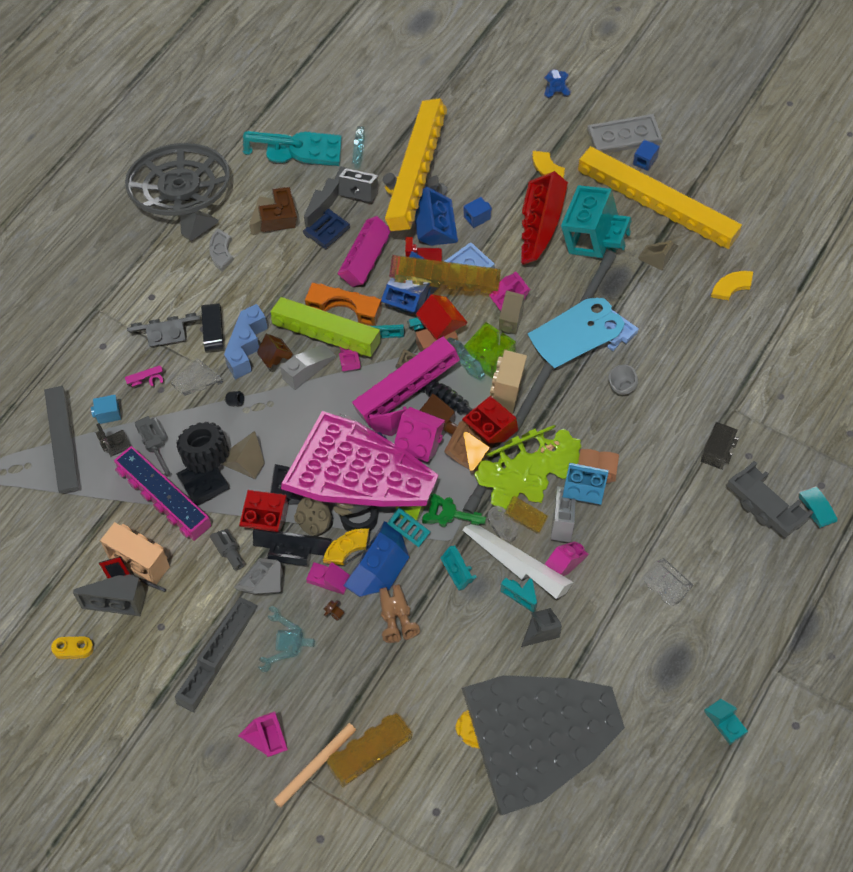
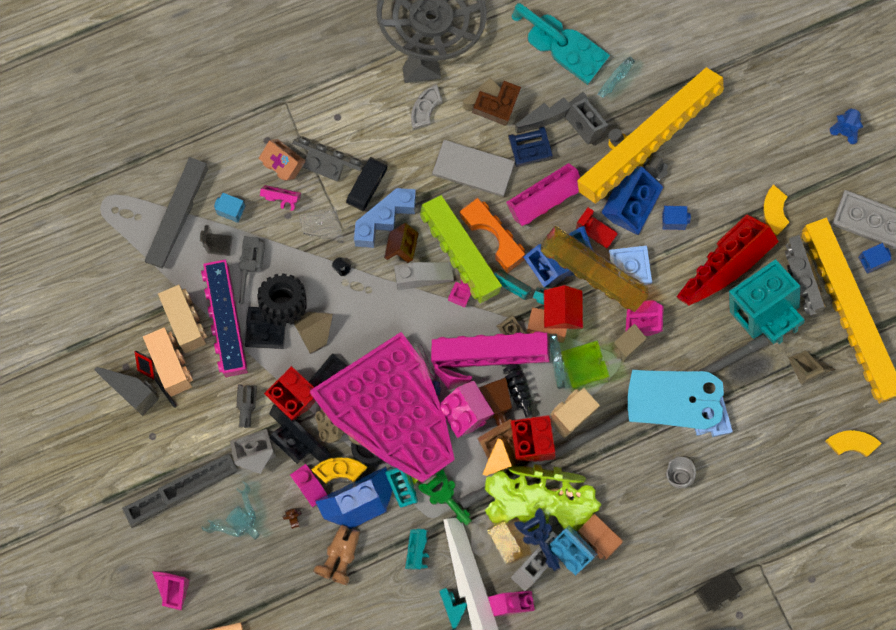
camera: 35 degrees right, 15 degrees up
(71, 647) = (72, 408): yellow plate -> none
(123, 508) = (183, 318): none -> tan brick
(127, 348) = (281, 160): none -> nougat brick
(292, 269) = (473, 168): none -> light grey tile
(550, 492) = (539, 537): none -> dark blue piece
(625, 199) = (805, 275): none -> dark grey bracket

